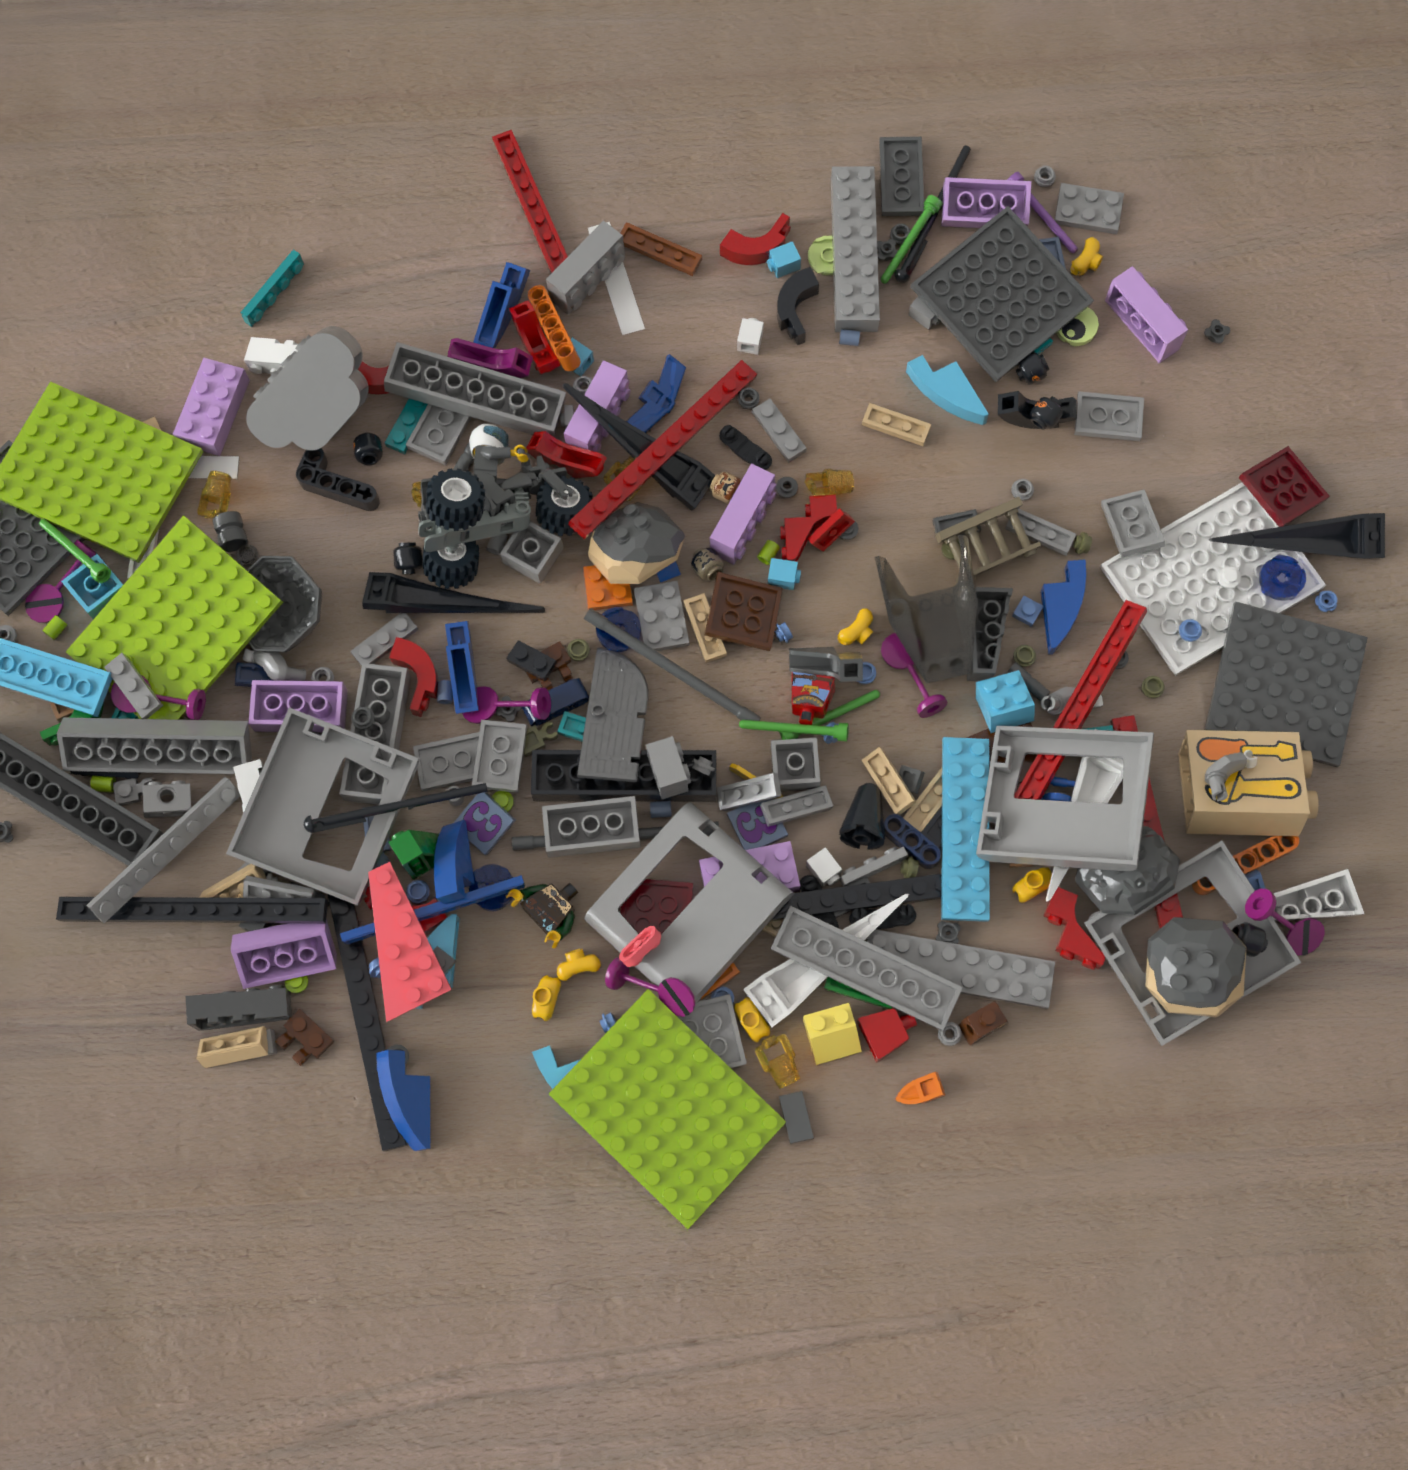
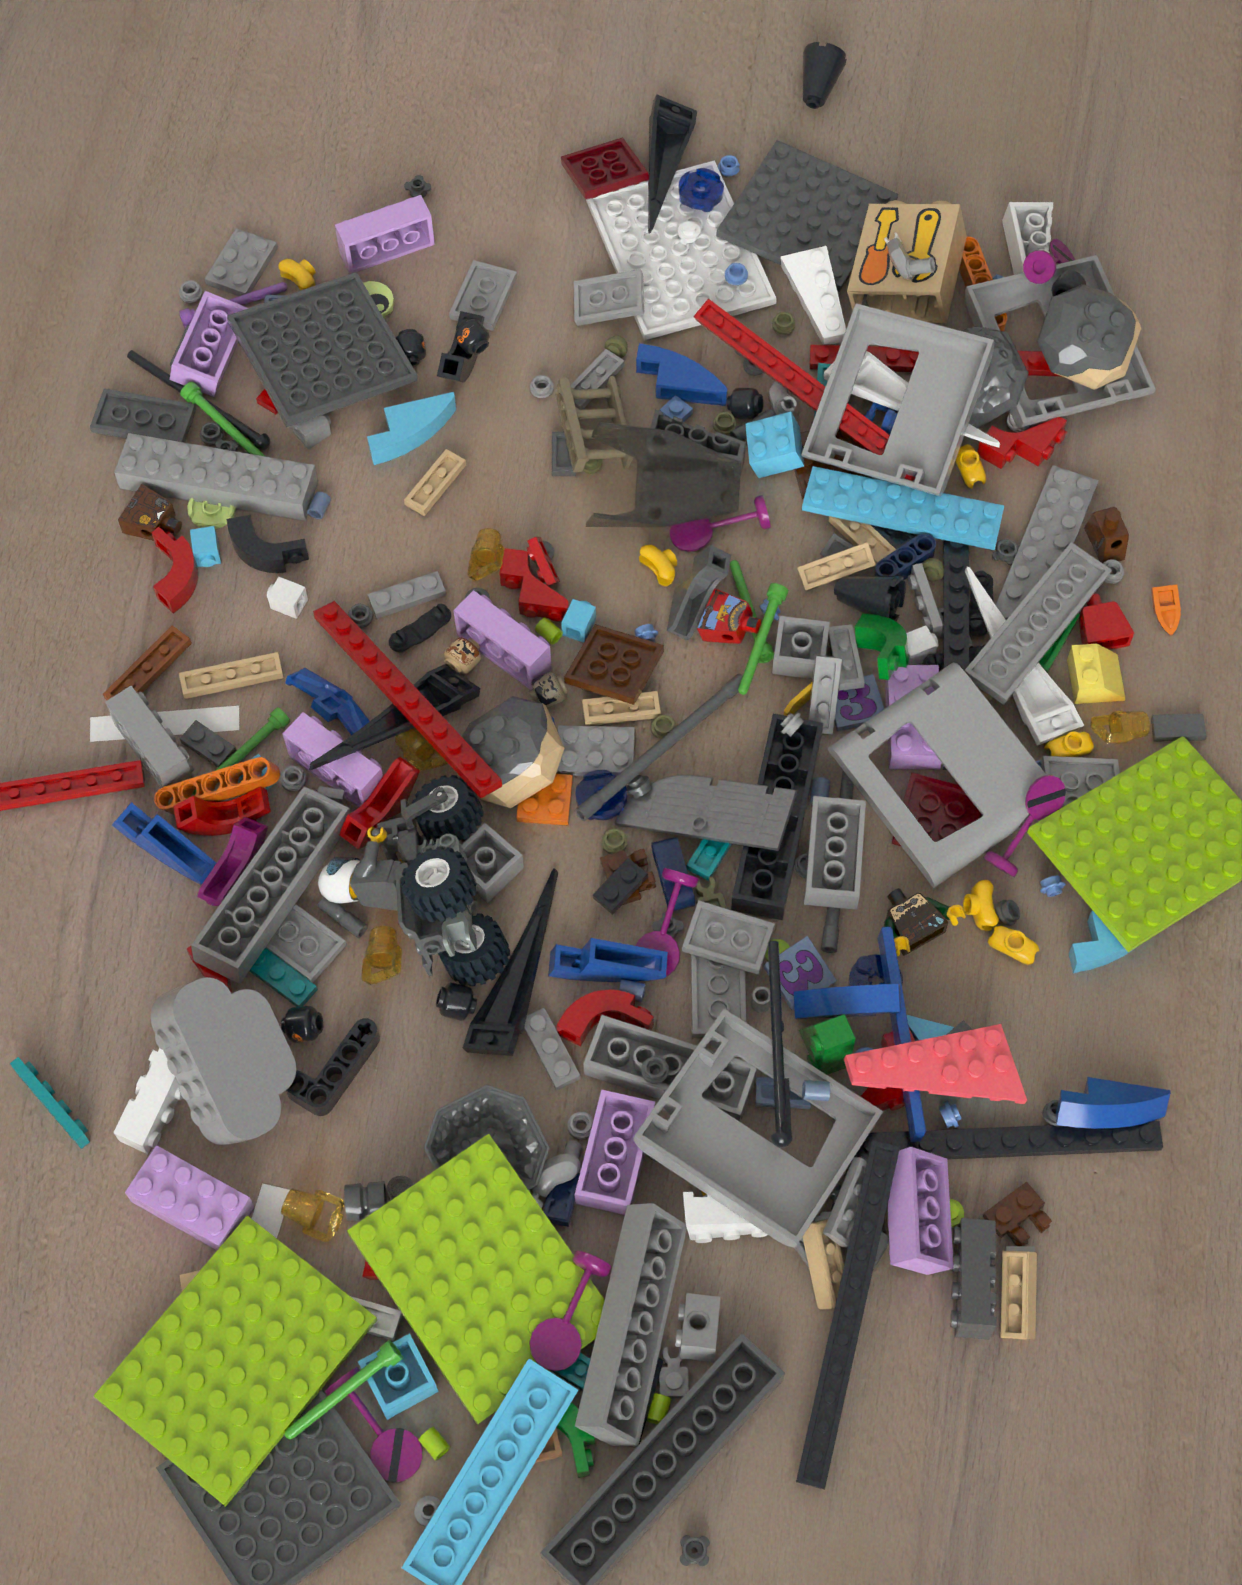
camera: 80 degrees left, 10 degrees down
(133, 686) = (551, 1334): light grey plate -> none
(163, 850) = (767, 1336): light grey plate -> none
(361, 845) = (816, 1090): none -> sand blue hinge
(575, 988) = (1008, 912): none -> dark grey plate
(601, 314) = (207, 744): none -> dark grey plate
(632, 658) = (639, 786): none -> dark grey plate
(633, 360) = (277, 720): none -> bright green piece
(640, 946) = (986, 820): coral plate -> none
(666, 763) = (791, 752): light grey brick -> none
(667, 314) = (231, 675): none -> tan plate
(696, 666) = (662, 726): none -> olive plate
(805, 208) = (146, 513): none -> reddish brown torso
(805, 844) = (884, 636): none -> green arch
(1049, 668) = (745, 403): none -> black head
(1186, 706) = (815, 286): none -> white wedge

